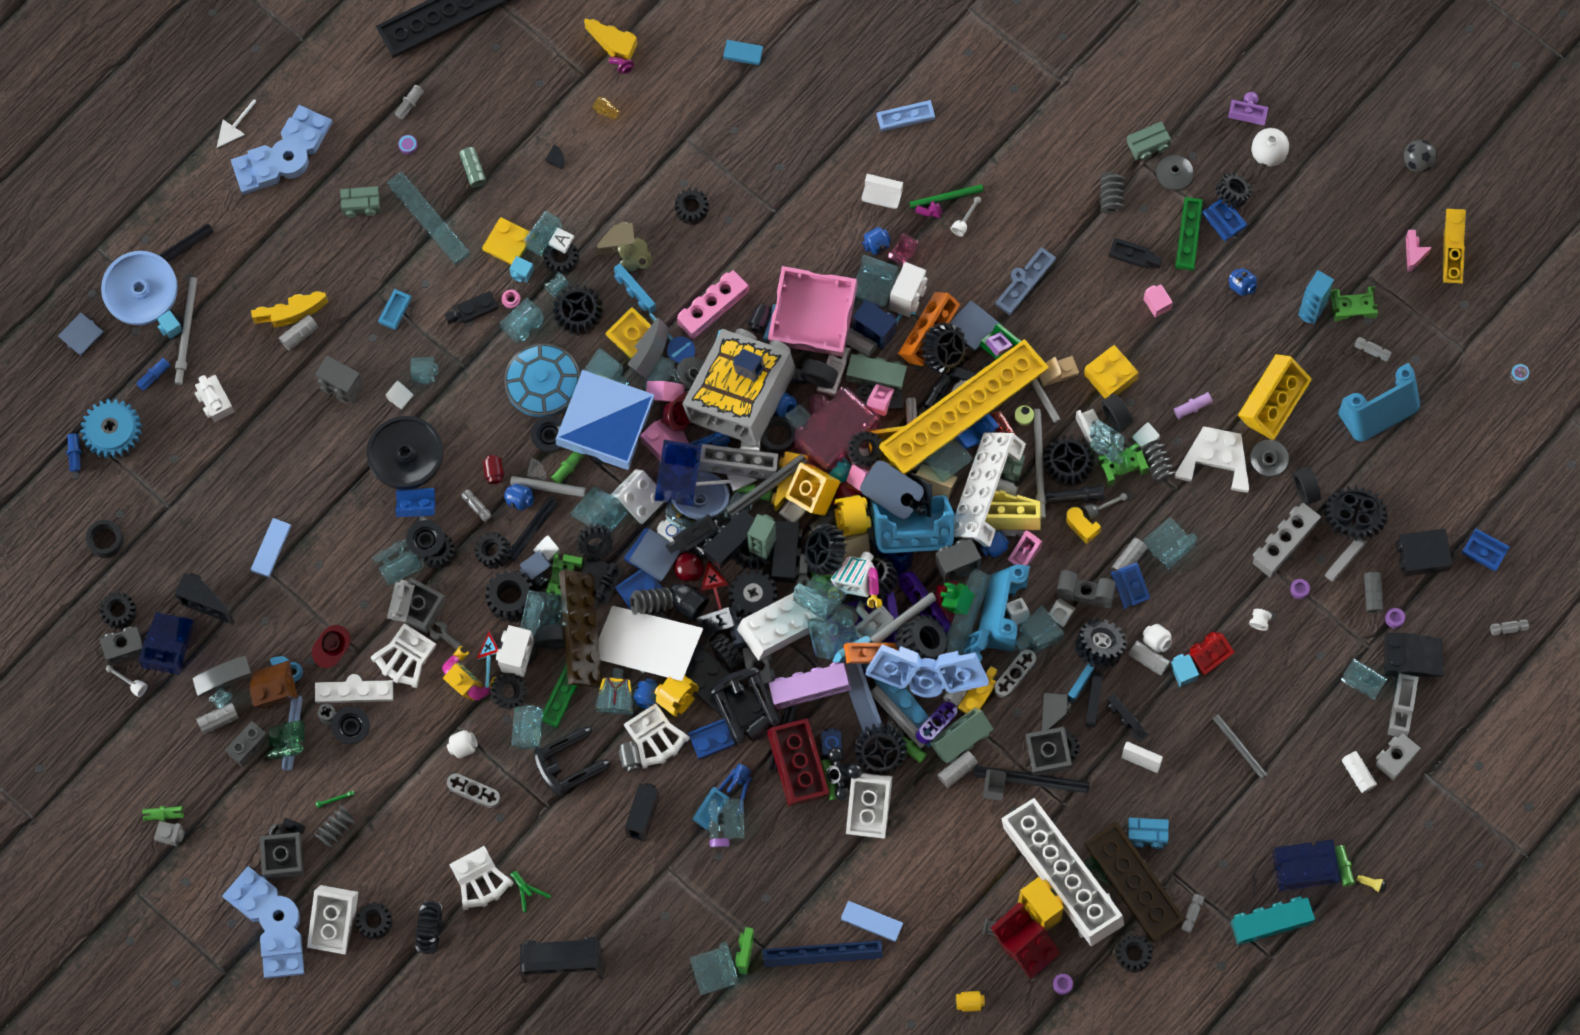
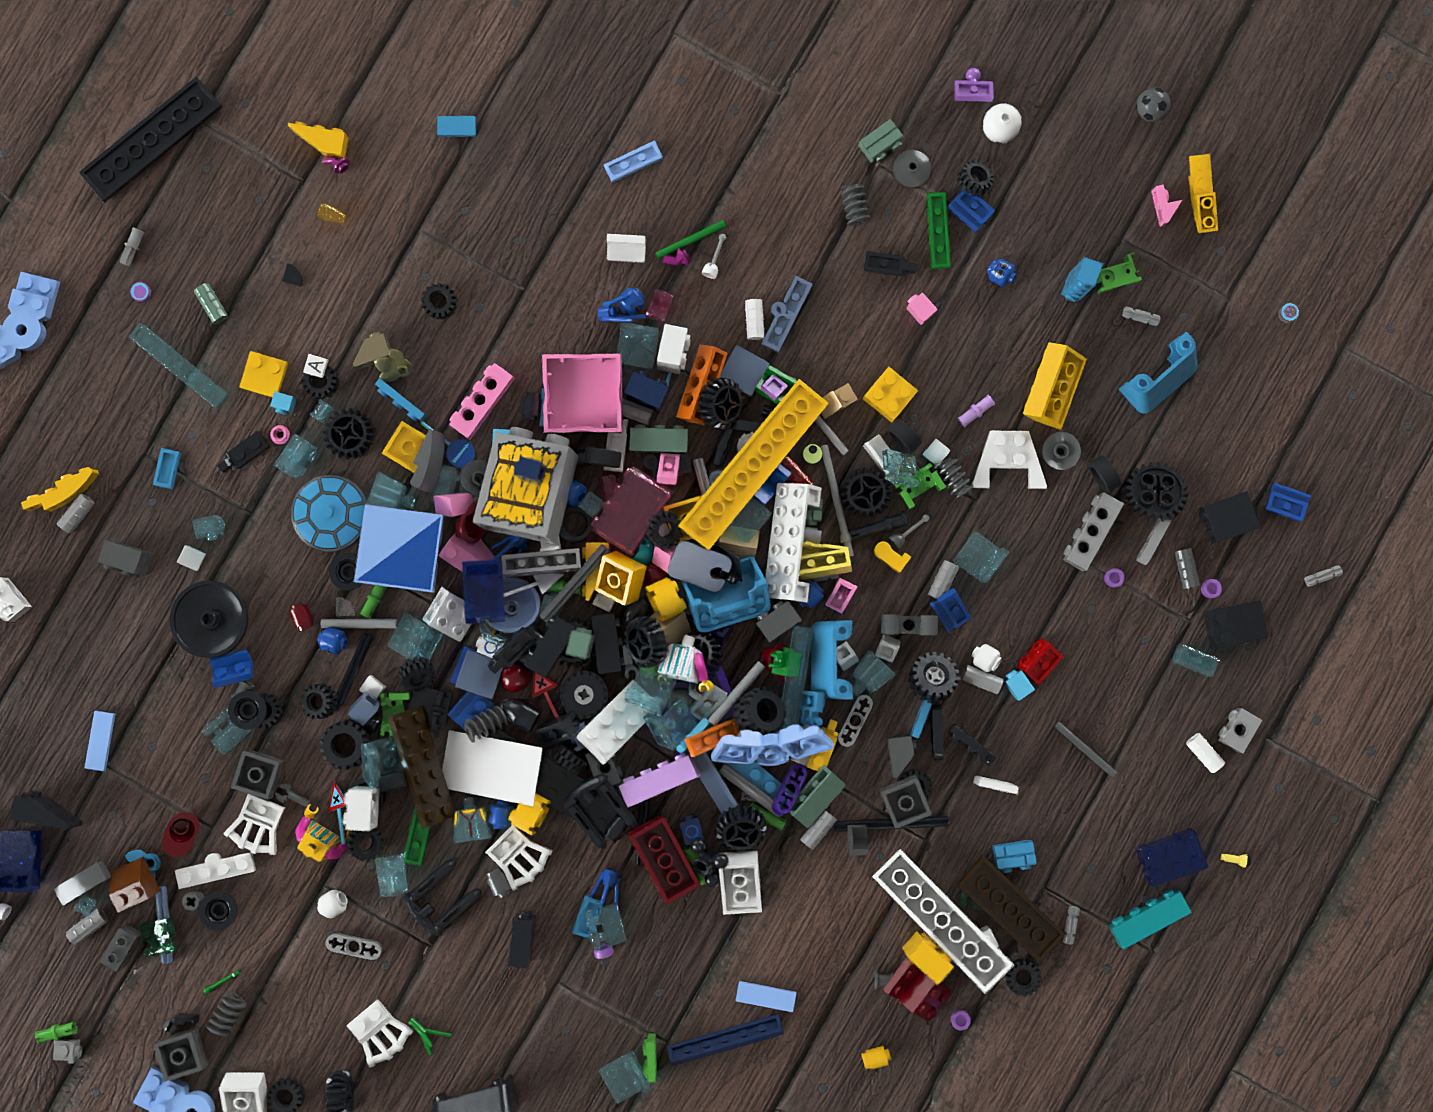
camera: 15 degrees left, 15 degrees up
(360, 201) = (106, 362): sand green brick -> none
(400, 601) = (237, 779): light grey hinge -> none
(476, 505) = (293, 656): light grey axle -> none
(542, 233) = (295, 361): clear light blue brick -> none
(711, 739) = (573, 847): blue plate -> none
(853, 247) = (609, 313): none -> blue plant
(914, 582) = (737, 653): dark purple beam -> none
(993, 280) = (754, 319): none -> white axle
(1260, 619) = (1082, 618): white wheel -> none
(1344, 866) = (1208, 850): bright green pin -> none
(1403, 705) = (1236, 677): light grey slope -> none

